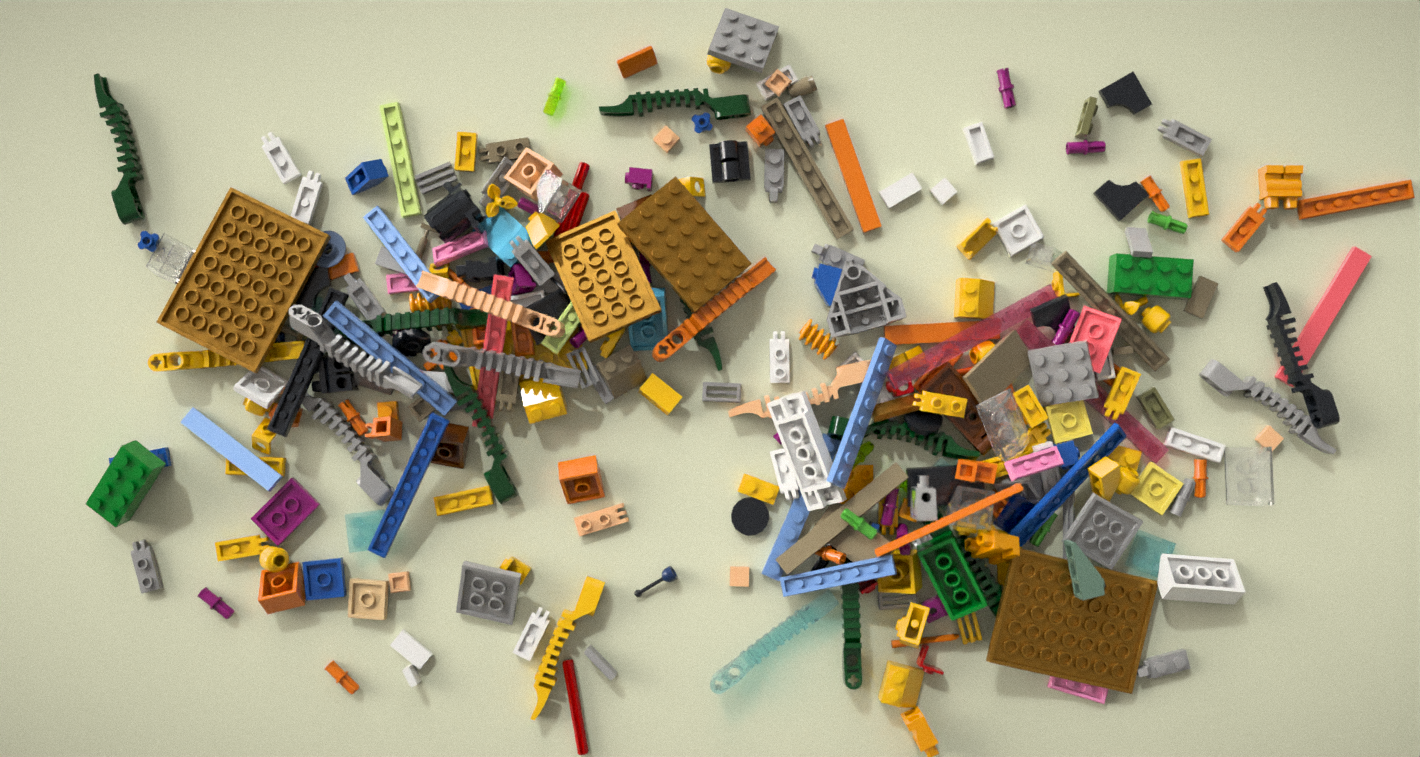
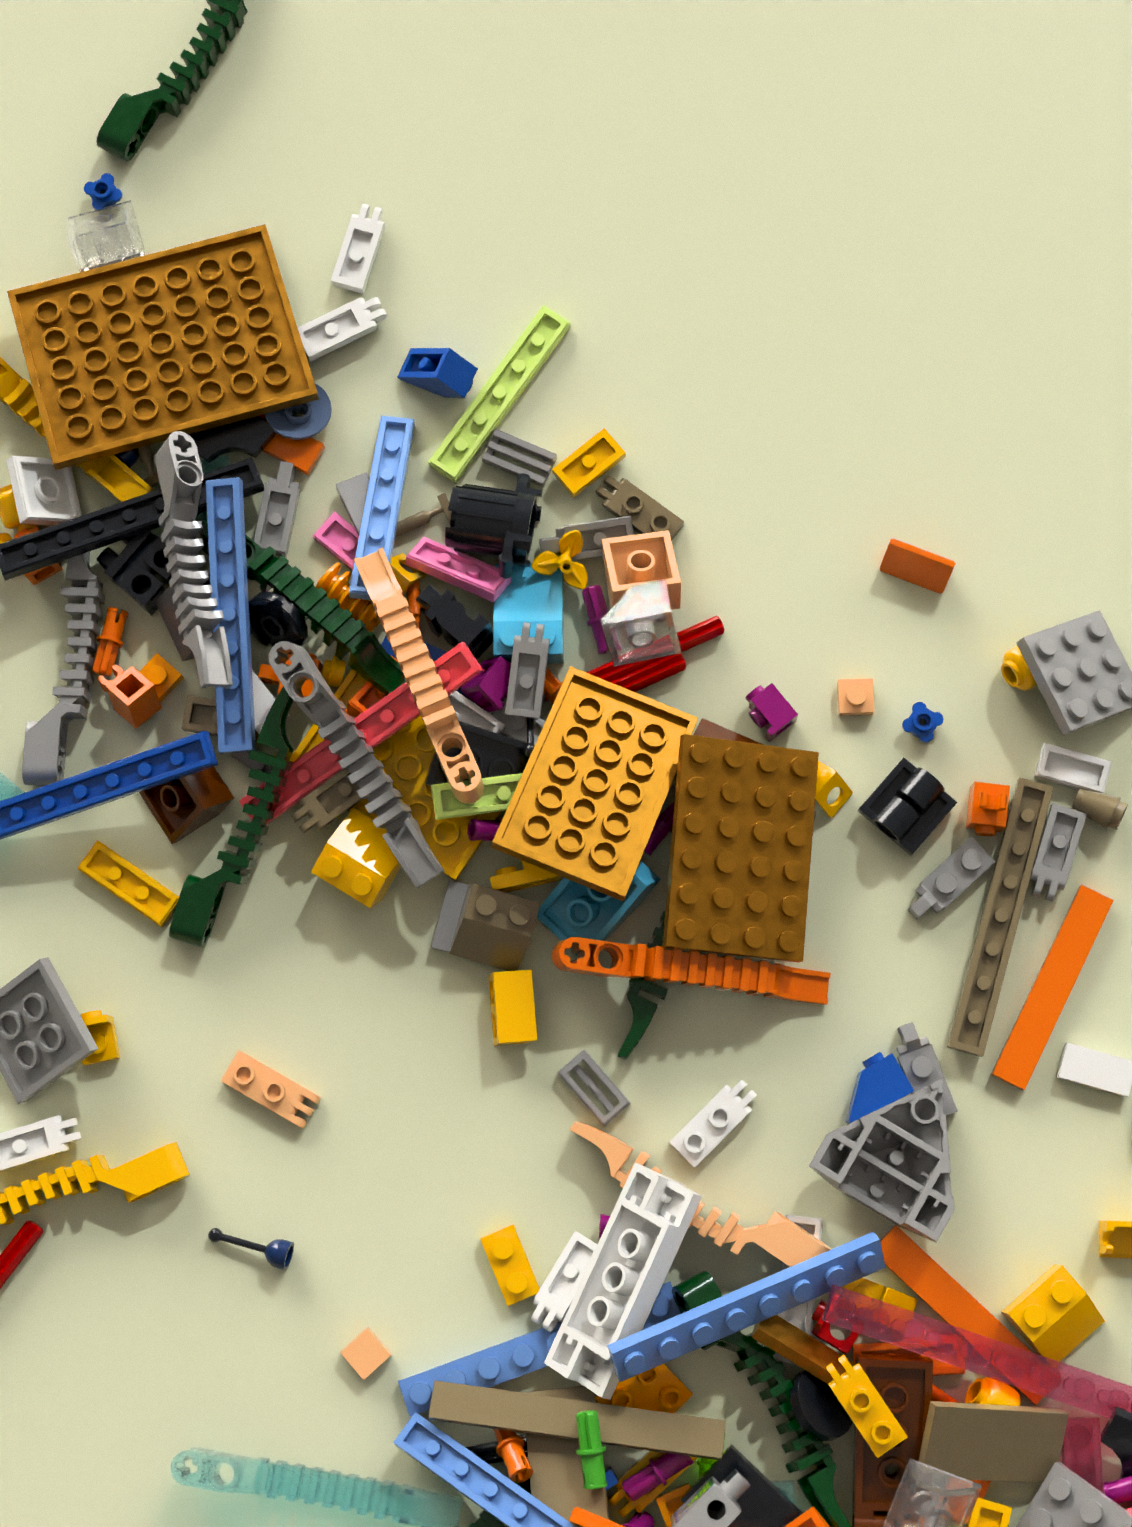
camera: 55 degrees right, 10 degrees down
(522, 340) = (412, 760): orange slope -> none
(540, 228) = (581, 645): yellow slope -> none
(554, 96) = (768, 505): clear neon green axle -> none
(576, 352) = (462, 844): light grey tile -> none
(581, 479) = (299, 1011): orange slope -> none
(602, 664) = (73, 1273): light grey tile -> none
(723, 107) = (969, 729): dark green piece -> none
(750, 516) = (461, 1289): black tile -> none
(778, 82) = (1073, 769): light nougat tile -> none
(817, 339) = (788, 1150): light orange piece -> none
(864, 450) = (694, 1362): clear neon green axle -> none

